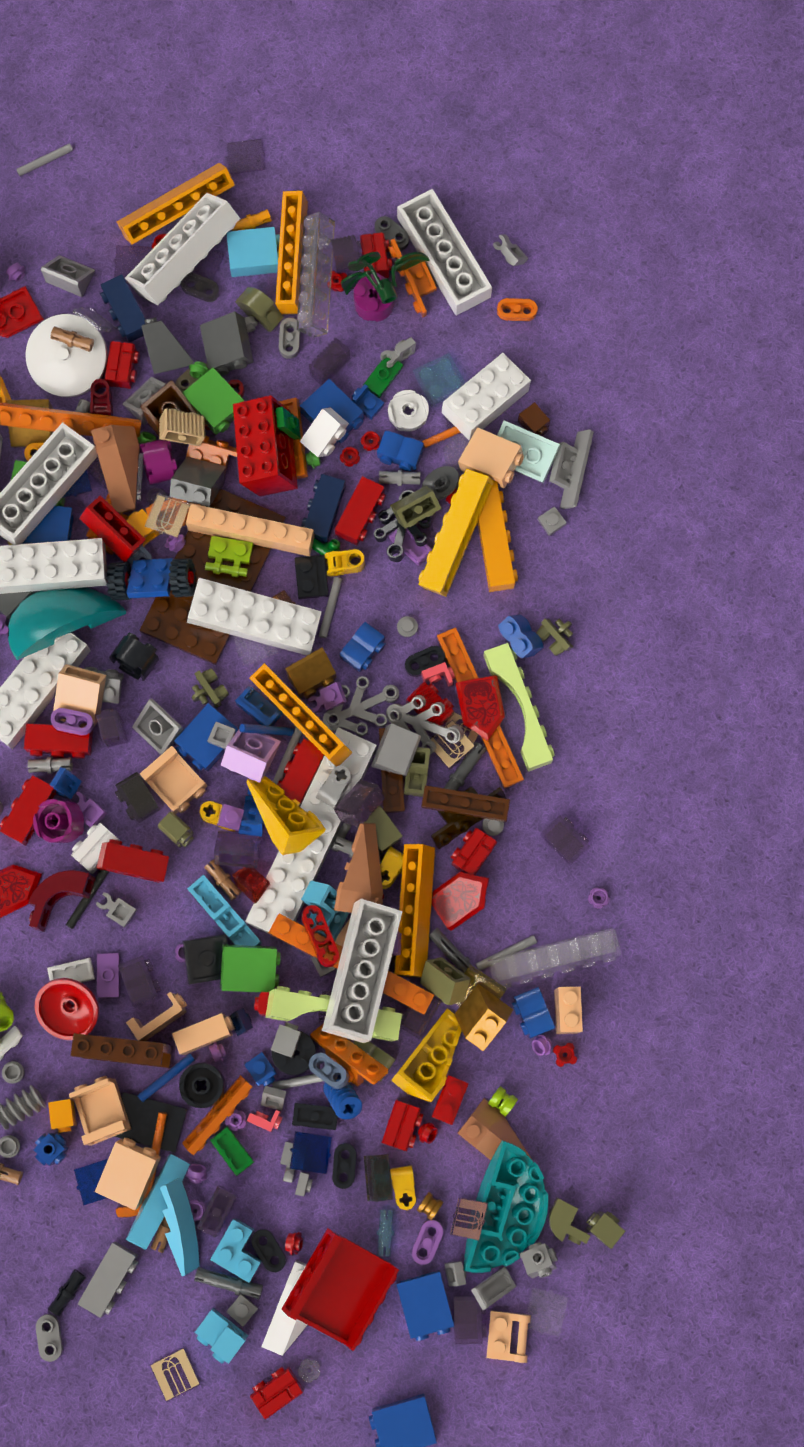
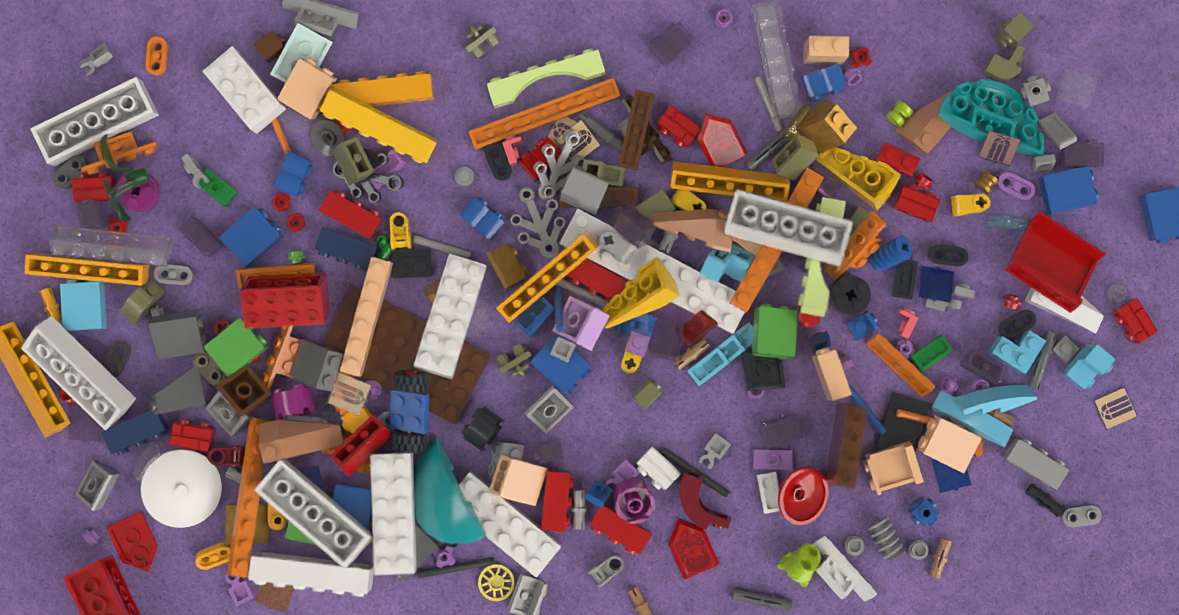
camera: 85 degrees left, 10 degrees up
(62, 1115) = (894, 501): light orange brick -> none
(72, 339) = (168, 480): medium nougat pin -> none
(73, 721) = (540, 485): medium lavender plate -> none
(133, 861) = (673, 434): red brick -> none
(137, 797) = (613, 429): clear smoke brick -> none
(145, 1032) = (827, 426): light nougat panel -> none
(146, 437) = (268, 413): bright green plate -> none
(174, 780) = (599, 395): light nougat panel -> none
(182, 427) = (263, 377): tan brick -> none
(189, 1085) = (886, 377): black brick -> none
(198, 369) = (203, 361): bright green plate -> none
(229, 550) = (384, 337): lime plate -> none
(273, 1098) = (887, 315): light grey plate -> none
(286, 1039) = (843, 299): light grey brick -> none
(288, 423) = (264, 276): green plate -> none
(298, 1081) = (873, 286): light grey bar -> none
(324, 432) = (275, 243): white brick -> none
(330, 697) = (529, 250): medium lavender plate -> none
(330, 1070) = (870, 263): sand blue plate -> none
(332, 948) = (737, 265): red beam -> none
(367, 401) = (242, 203): blue bracket -> none
(378, 1177) = (960, 226): clear smoke bracket -> none
(399, 477) = (319, 176): light grey pin -> none
(408, 422) = (244, 158): white plate -> none
(439, 379) = (223, 133): clear light blue plate -> none
(481, 705) = (543, 112): red tile -> none
(492, 827) = (657, 109): light grey plate -> none
(500, 1336) = (1094, 127): light nougat plate -> none
(522, 638) = (478, 72): blue brick -> none
(551, 521) = (369, 37): light grey plate -> none

